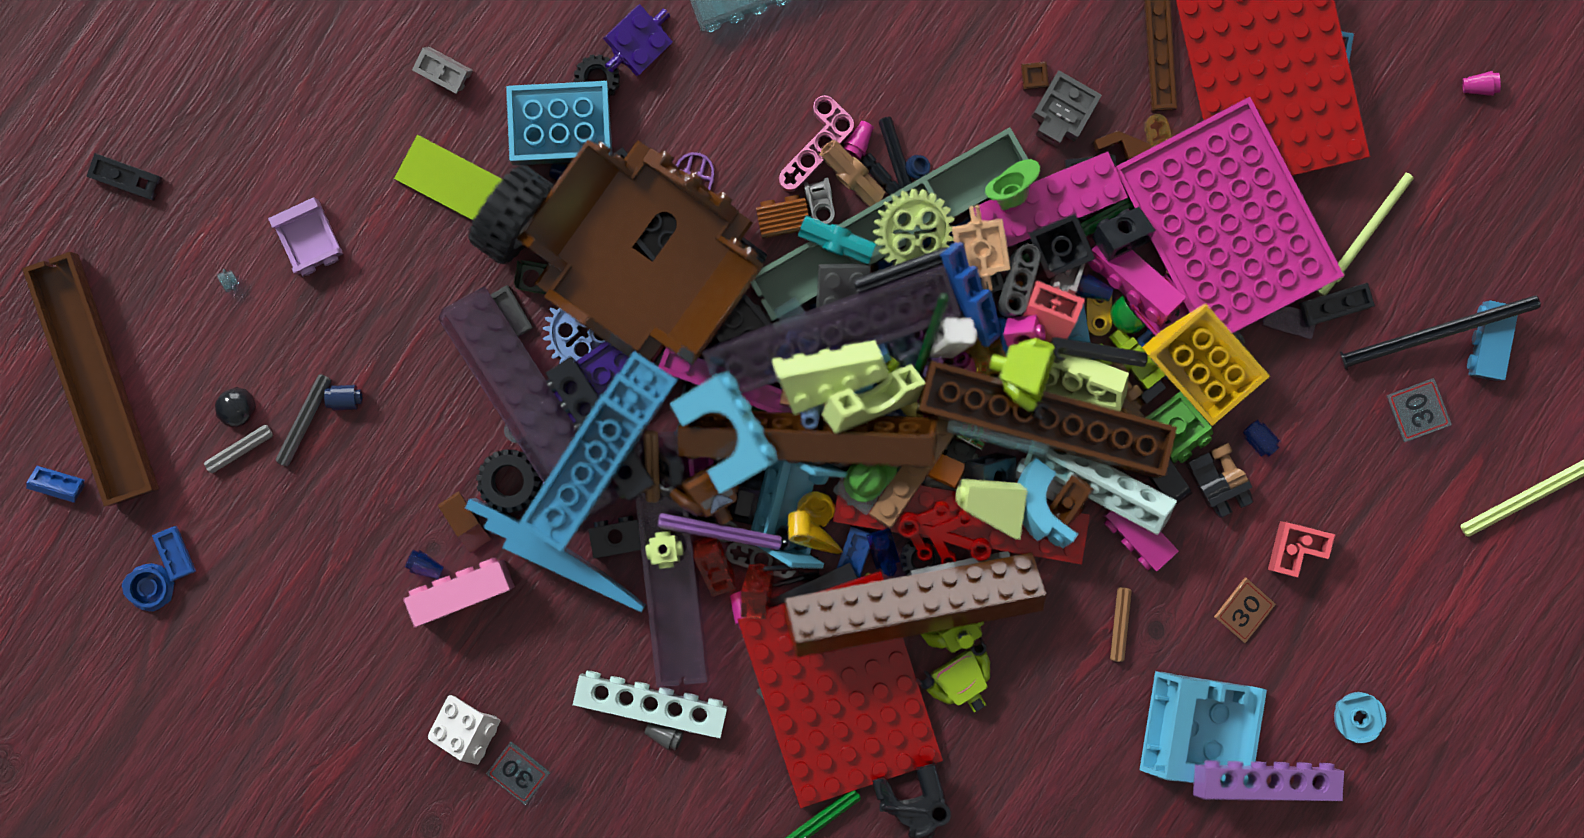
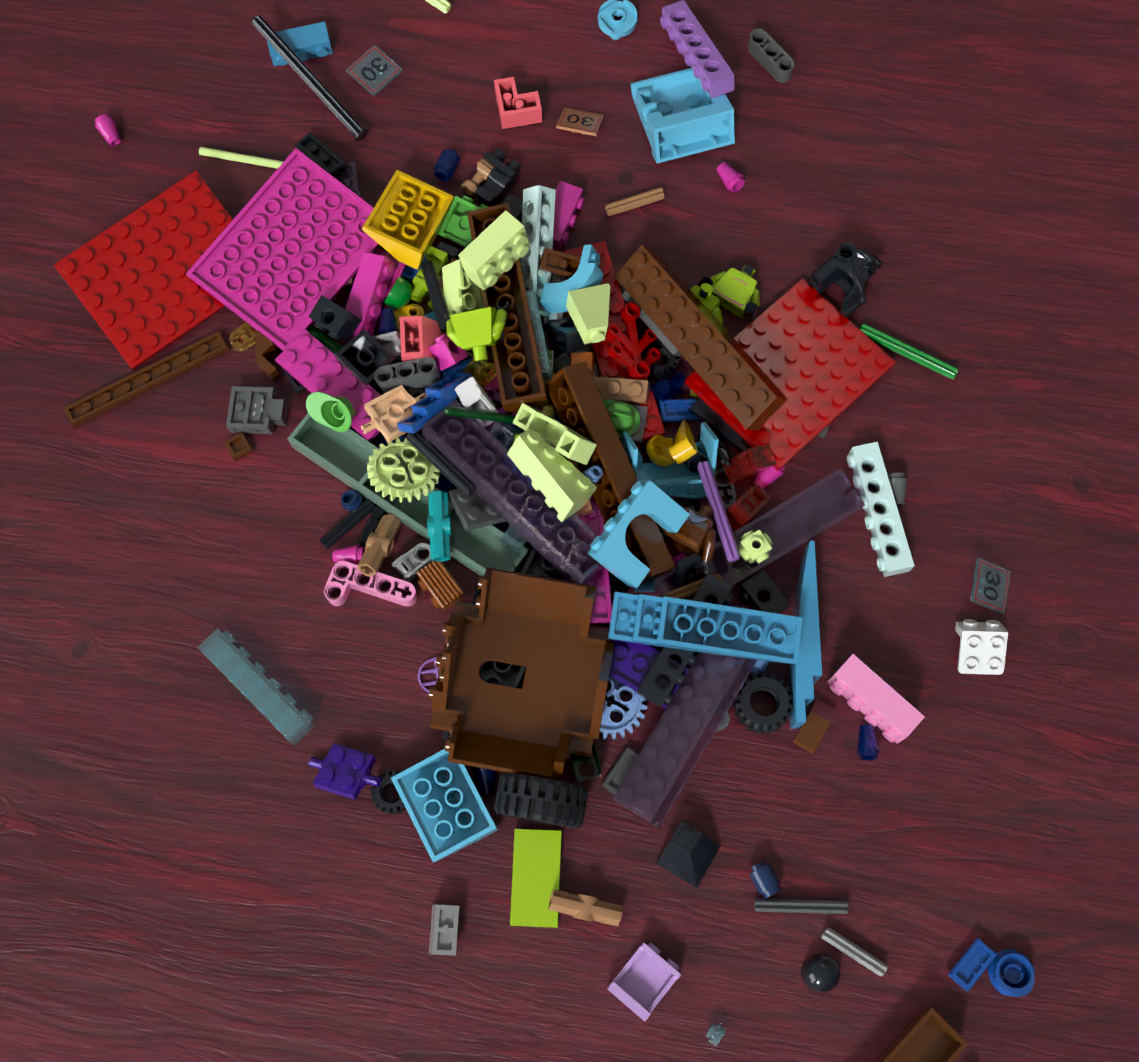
camera: 115 degrees left, 15 degrees down
(398, 212) = (585, 907): none -> medium nougat piece
(402, 336) = (688, 854): none -> black slope
(1099, 743) = (731, 178): none -> dark pink cone
(1104, 430) = (495, 250): none -> yellowish green brick

